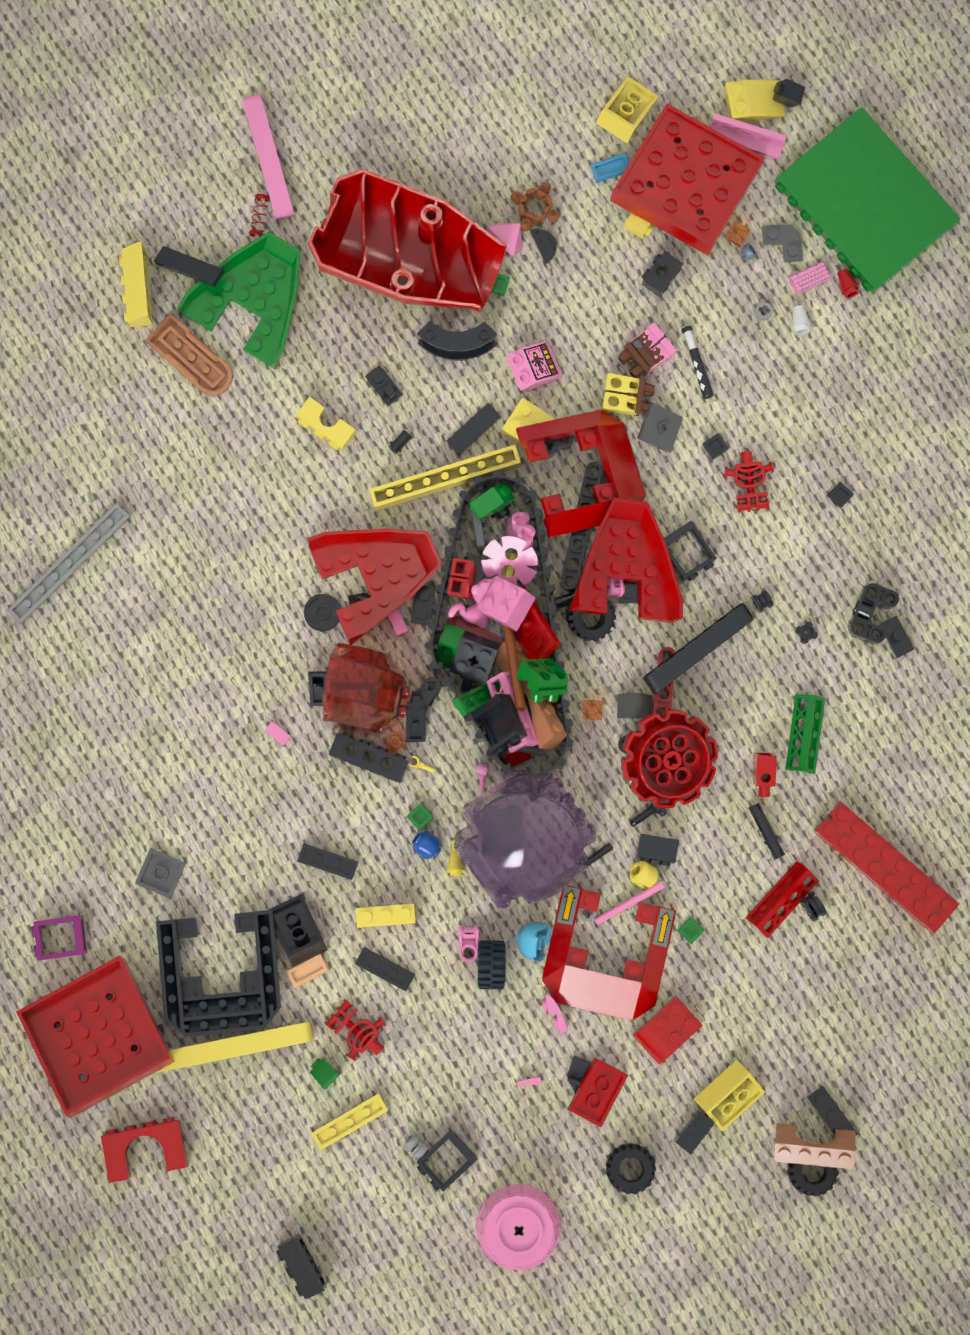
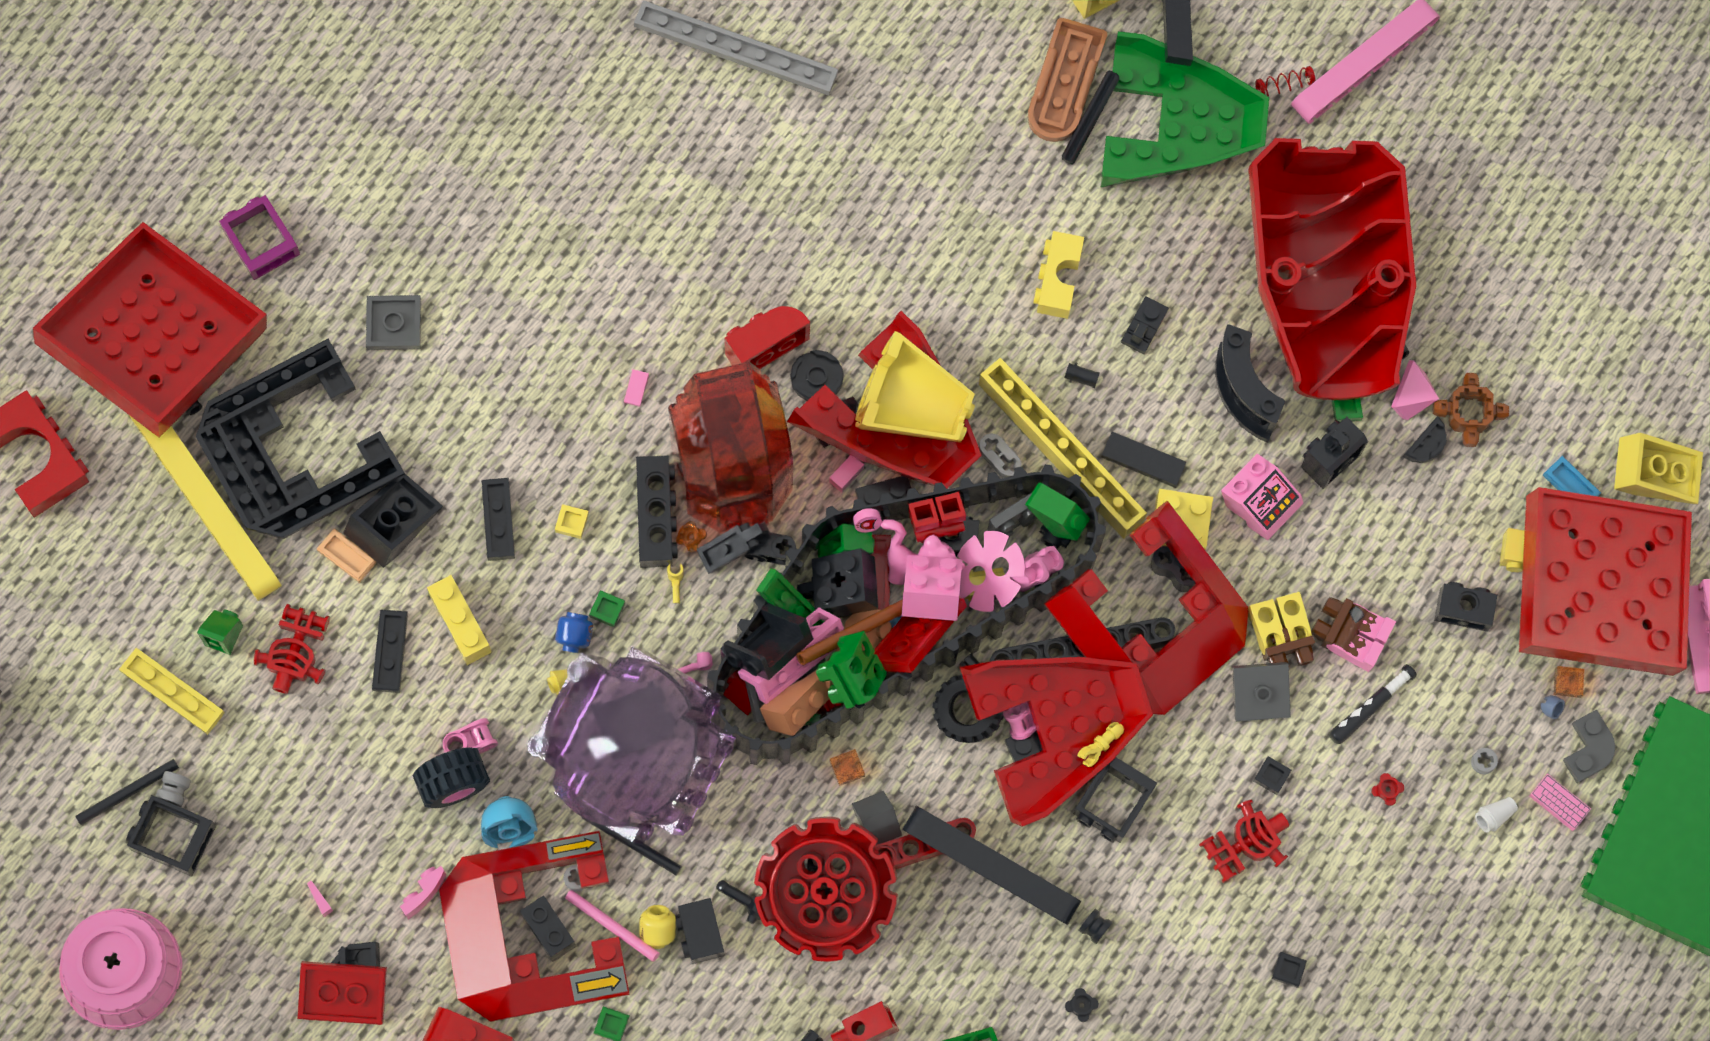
camera: 60 degrees right, 10 degrees down
(225, 353) = (1090, 117): none -> black axle
(285, 635) = (767, 336): none -> red brick
(351, 814) = (571, 521): none -> light yellow plate
(372, 558) = (913, 396): none -> light yellow cone
(403, 1177) = (126, 792): none -> black bar
(432, 523) = (1004, 452): none -> light grey beam
(443, 624) = (867, 520): none -> bright pink tile
(526, 307) = (1334, 452): none -> black hinge
(614, 944) = (548, 928): none -> black brick
(655, 553) = (1101, 743): none -> light yellow piece
(756, 373) = (1395, 788): none -> red plate
(848, 285) = (1576, 855): red cone -> none

